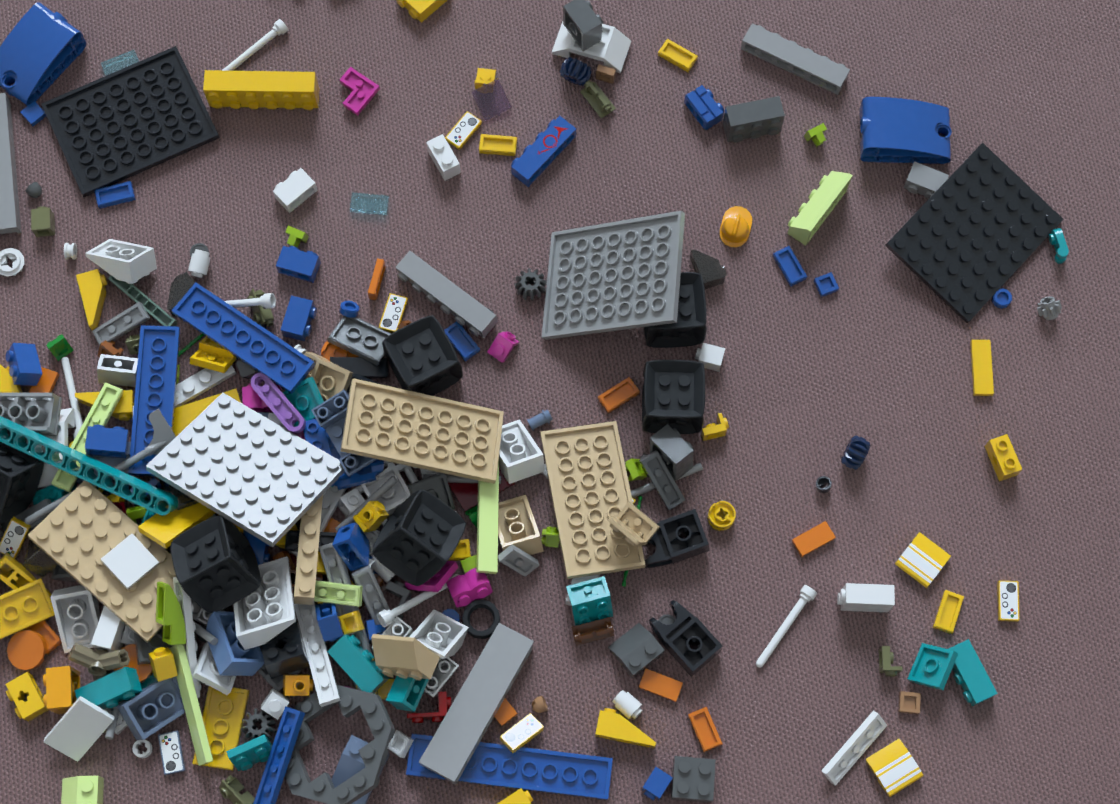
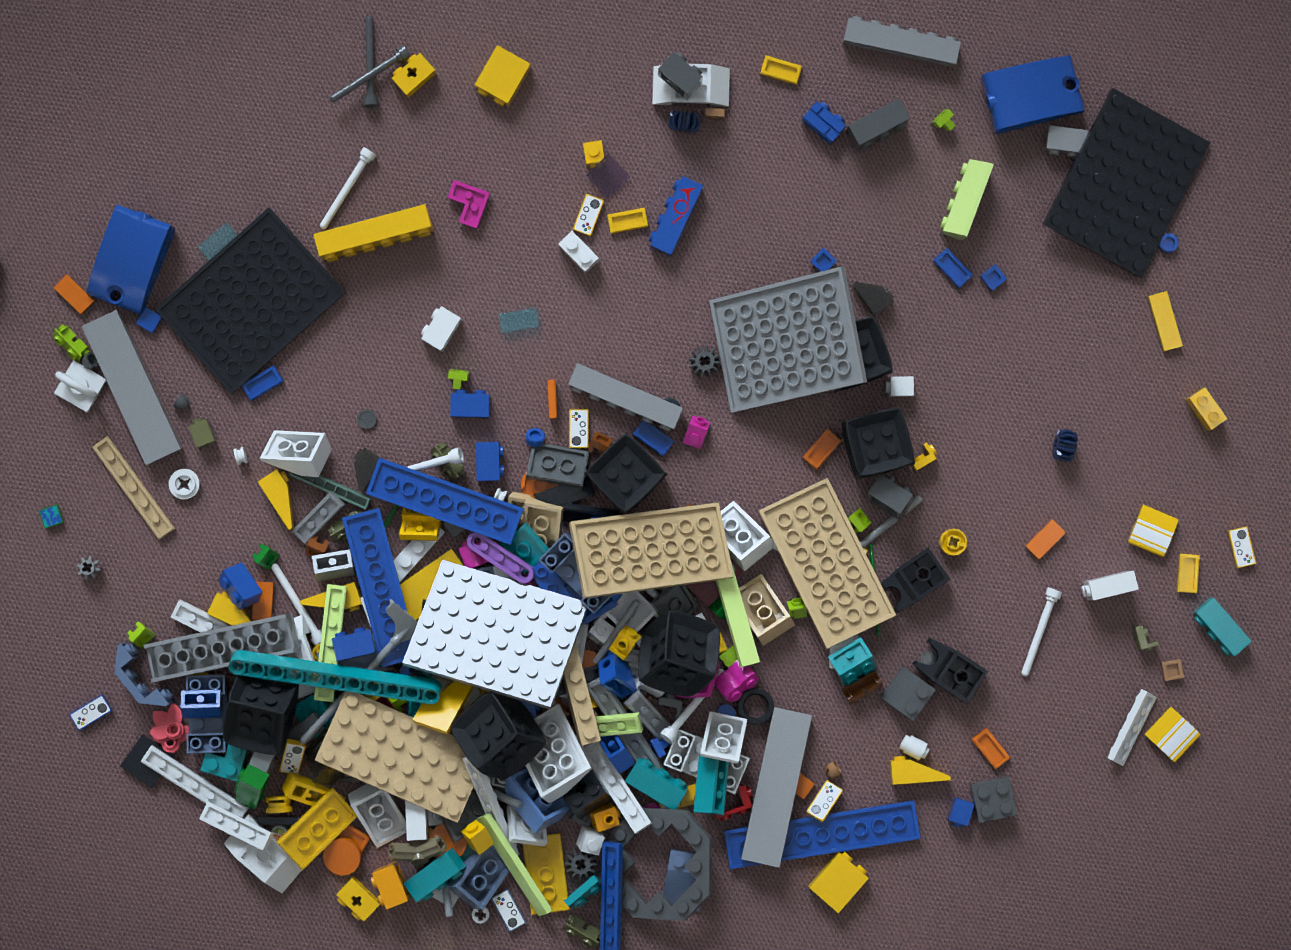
camera: 15 degrees left, 15 degrees up
(79, 729) = (419, 916): white tile -> none
(129, 561) = (417, 755): white tile -> none
(170, 615) = (472, 795): lime slope -> none
(199, 263) = (373, 433): white brick -> none
(351, 622) = (637, 747): yellow tile -> none
(400, 744) = (719, 843): white tile -> none
(403, 657) = (701, 772): tan slope -> none
(518, 560) = (775, 643): light grey plate -> none
(540, 419) = (753, 496): sand blue pin -> none
(597, 99) = (713, 143): olive hinge -> none
(634, 525) = (875, 583): tan bracket -> none
(660, 685) = (939, 719): orange tile -> none
(662, 479) = (886, 524): dark grey piece -> none
(735, 226) = (888, 240): light orange piece -> none
(821, 482) = (1038, 481): black hinge -> none
(932, 666) = (1186, 632): teal plate -> none
(1049, 308) = (1217, 242): light grey gear -> none
(1057, 239) = (1208, 166): teal plate -> none

